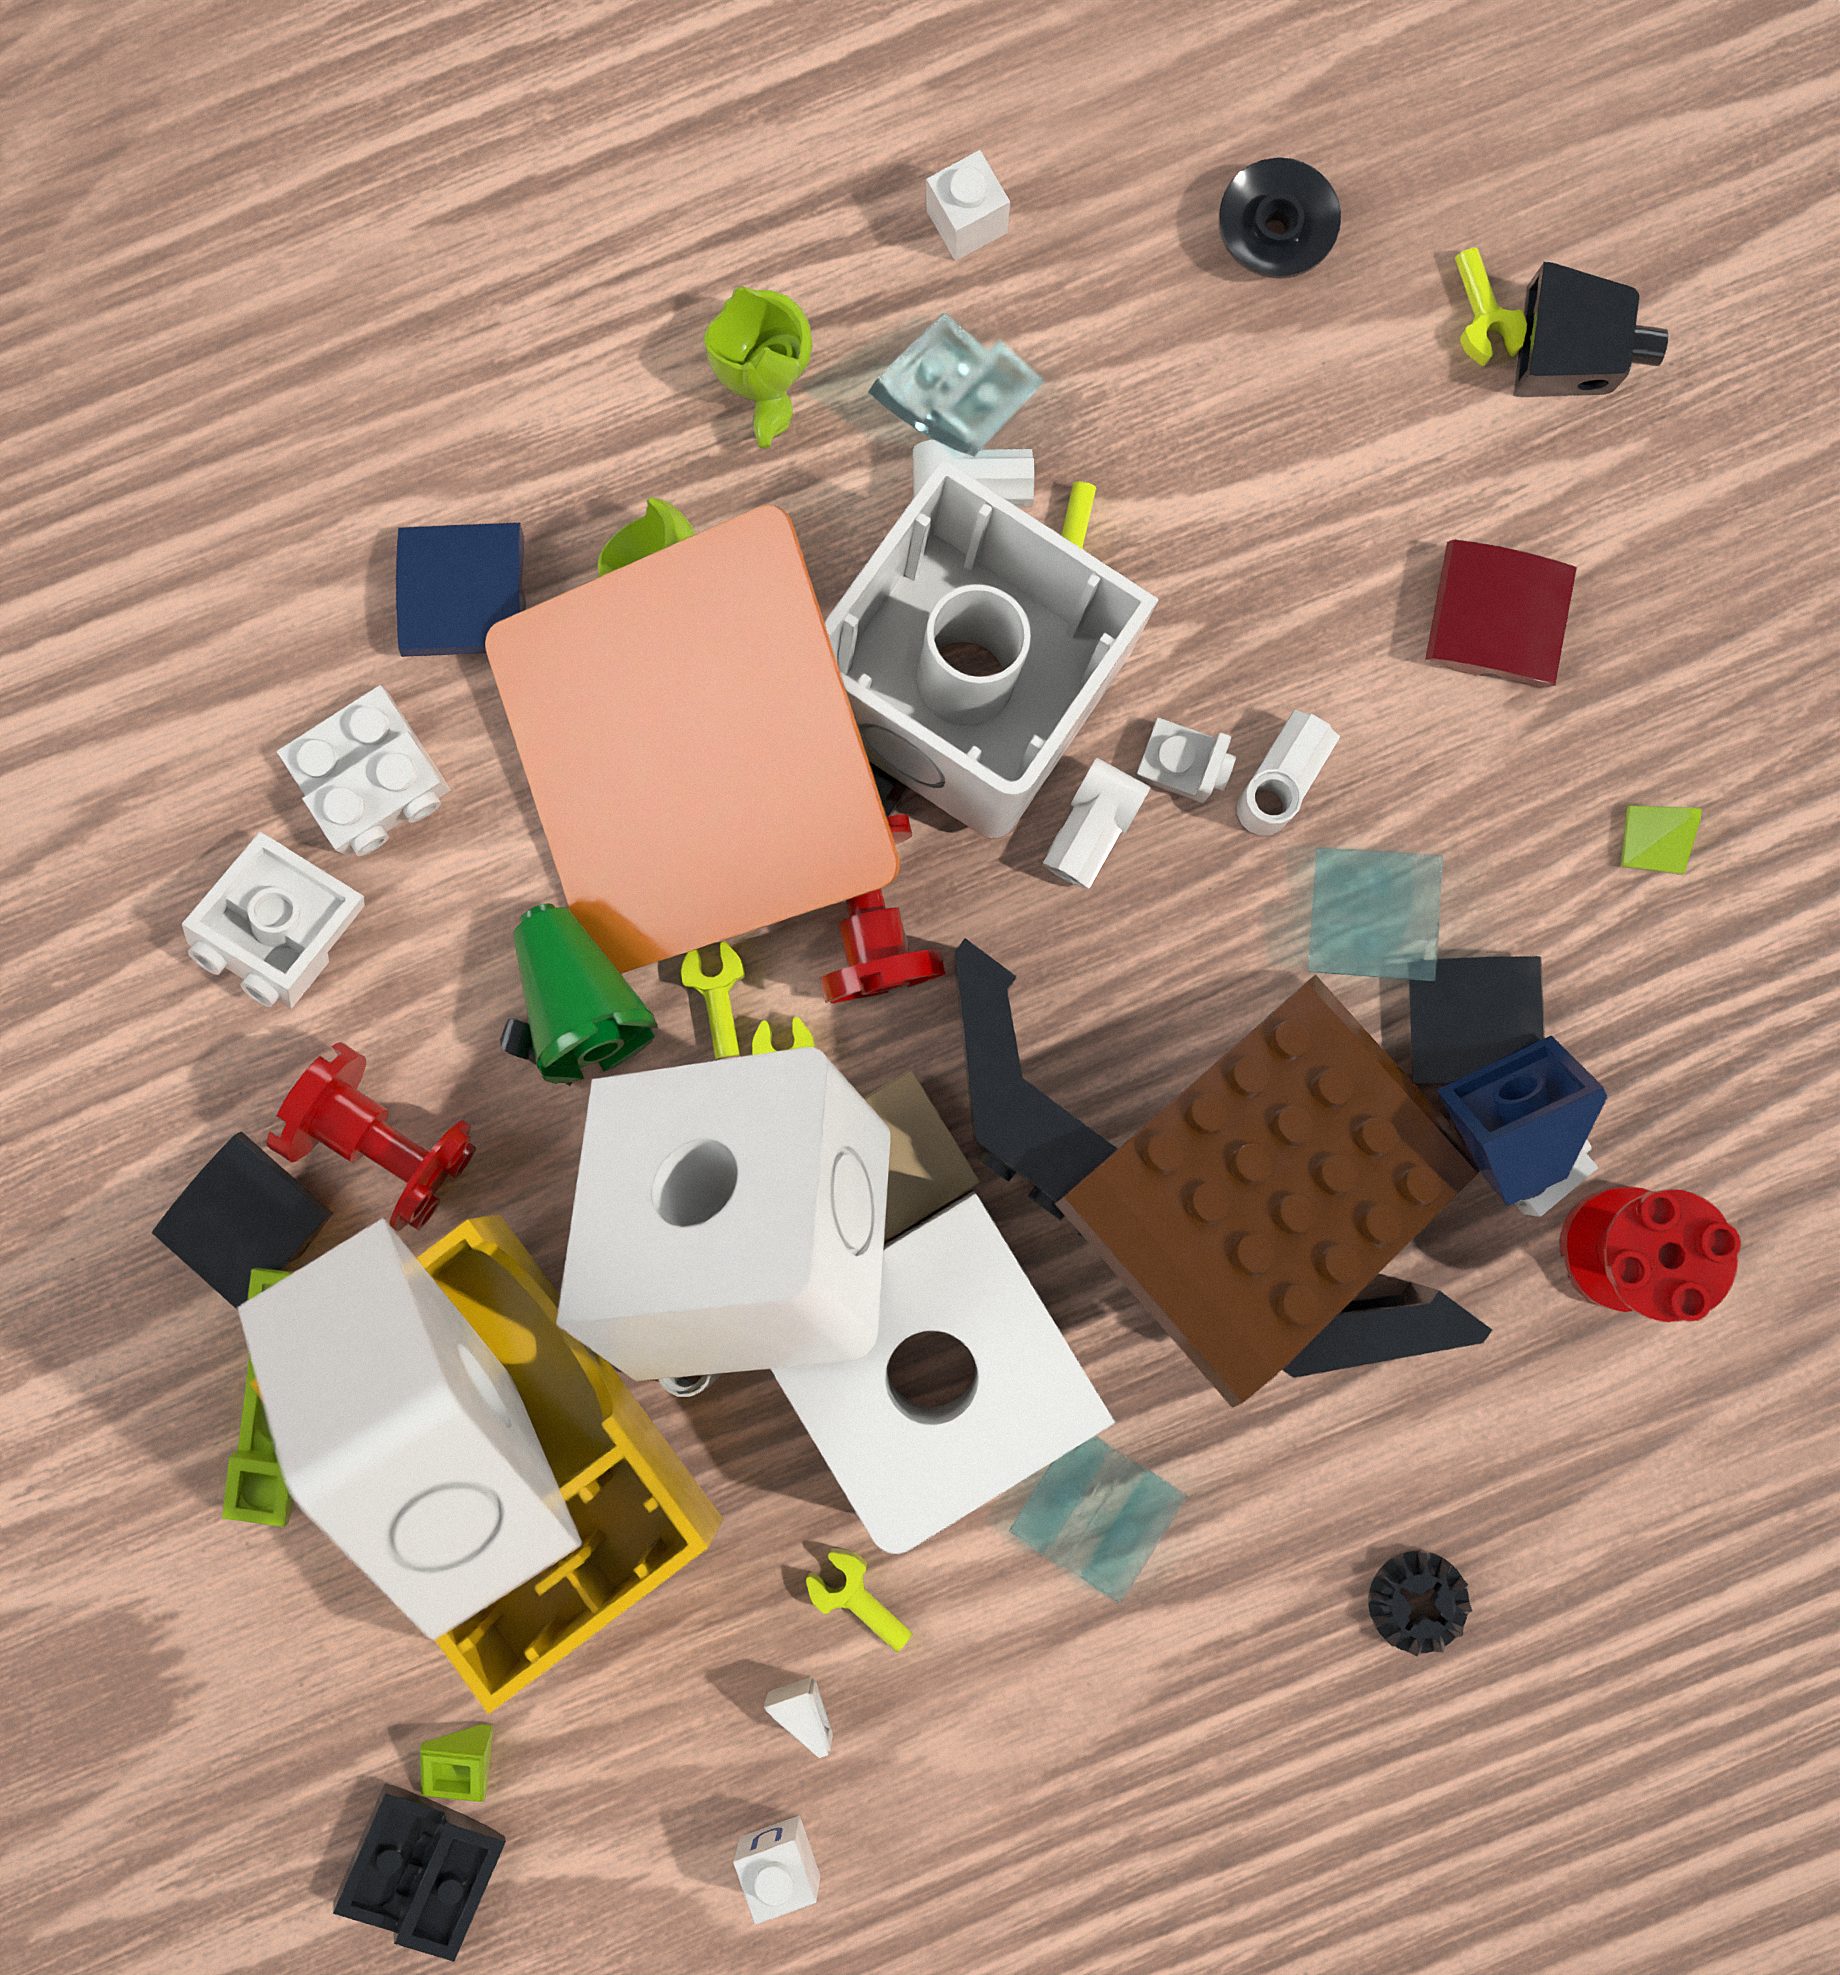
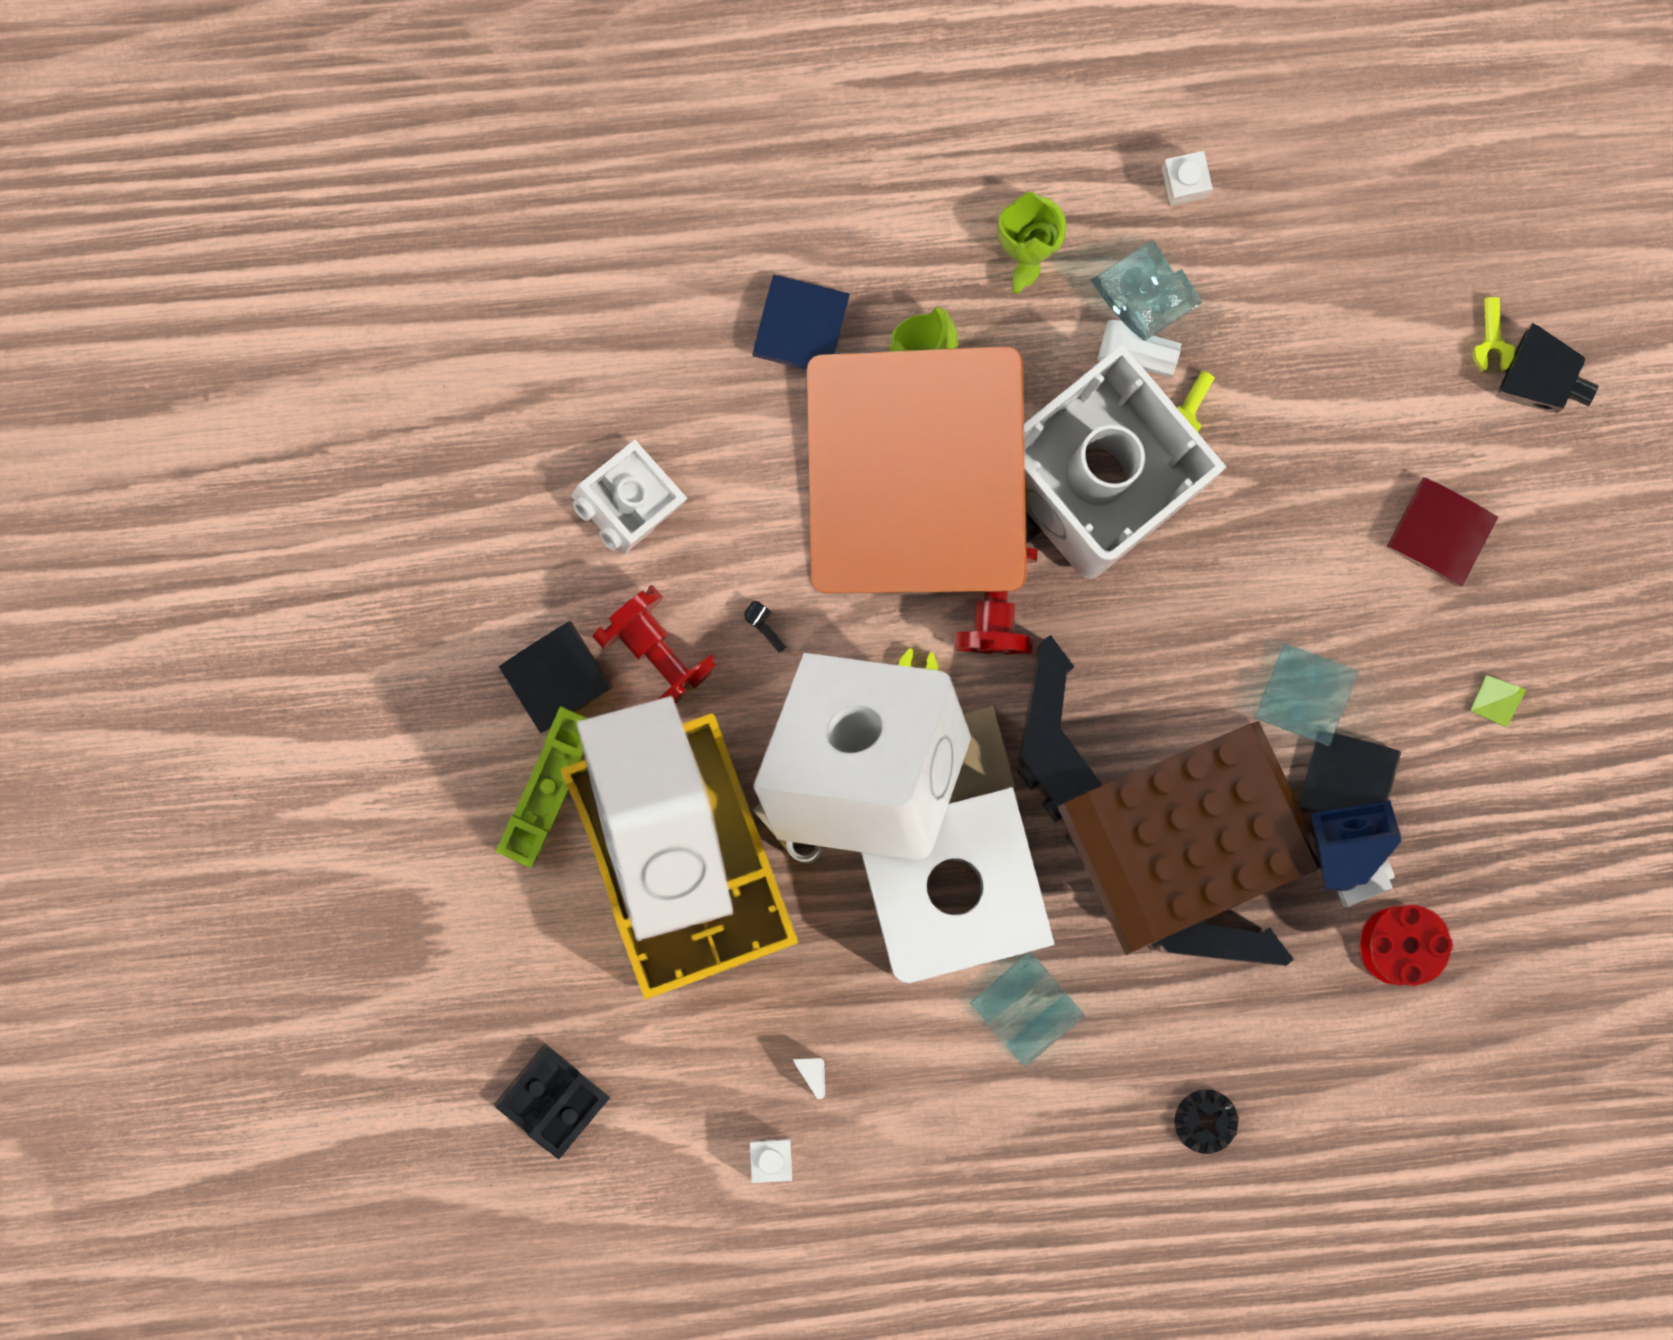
camera: 10 degrees right, 0 degrees up
(364, 773) = (708, 421): white plate -> none
(457, 1764) = (592, 1044): lime slope -> none
(575, 998) = (801, 599): green cone -> none
(717, 996) = (886, 625): neon yellow bar -> none
(856, 1598) = (865, 1018): neon yellow bar -> none
(1099, 814) = (1156, 581): white piece -> none
(1185, 761) = (1218, 565): white bracket -> none
(1286, 193) = (1389, 226): black dish -> none
(1287, 771) = (1280, 590): white piece -> none

